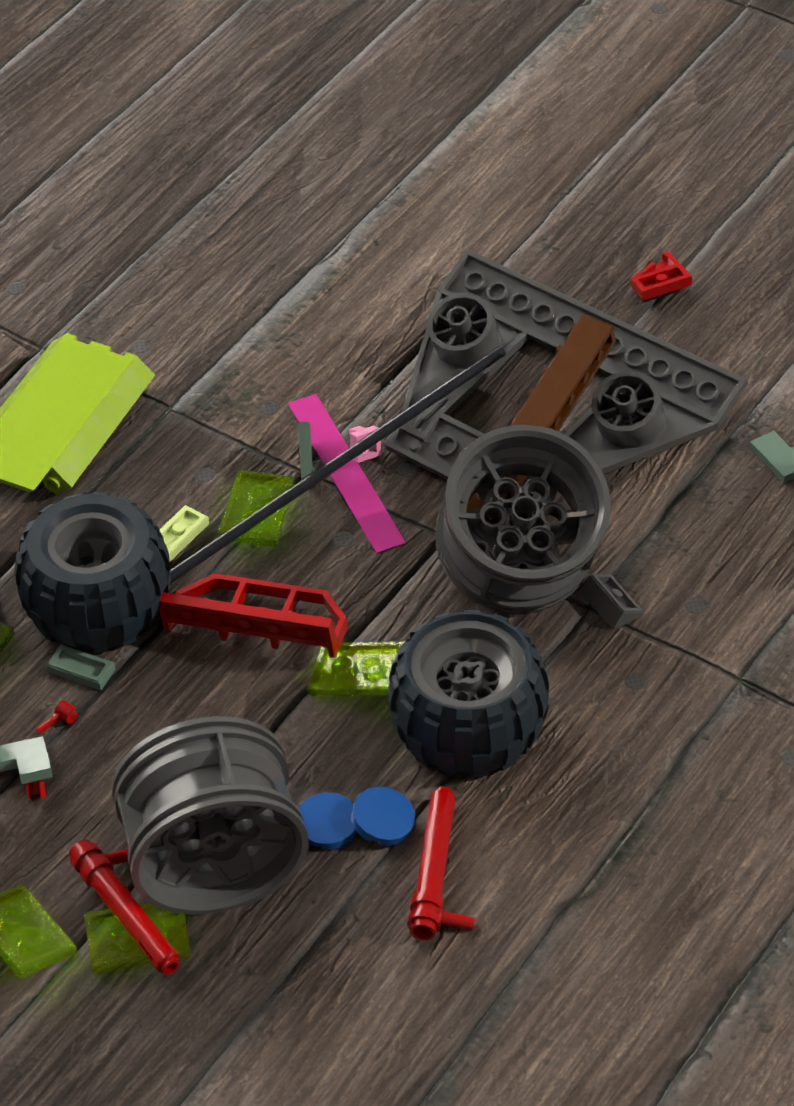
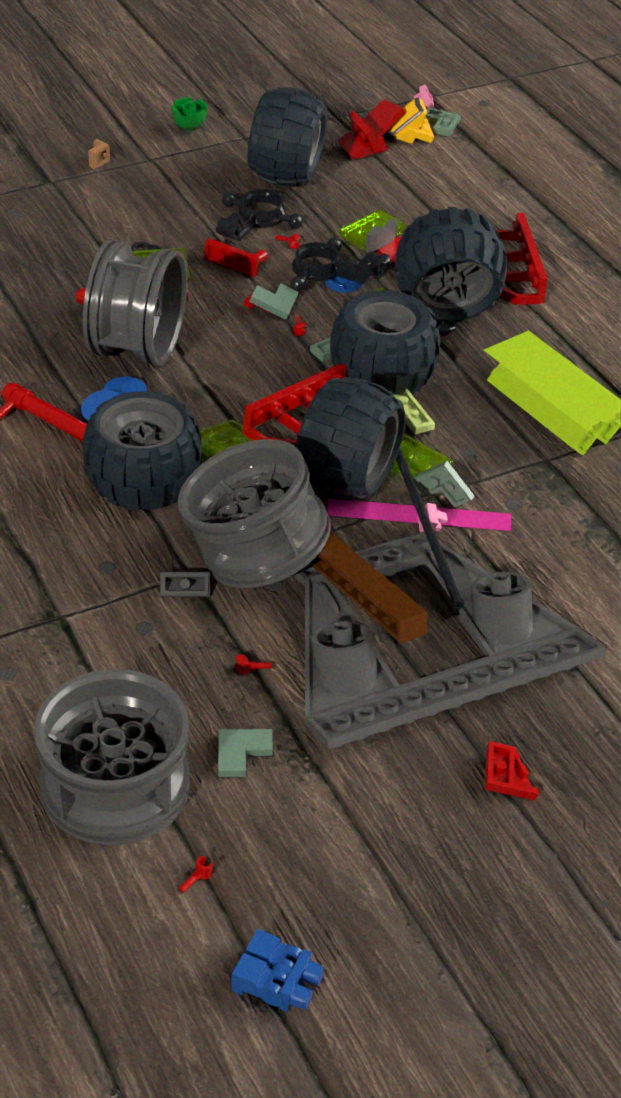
camera: 115 degrees right, 5 degrees down
(328, 502) = (351, 437): none -> black wheel
(684, 499) = (244, 666): none -> red hand

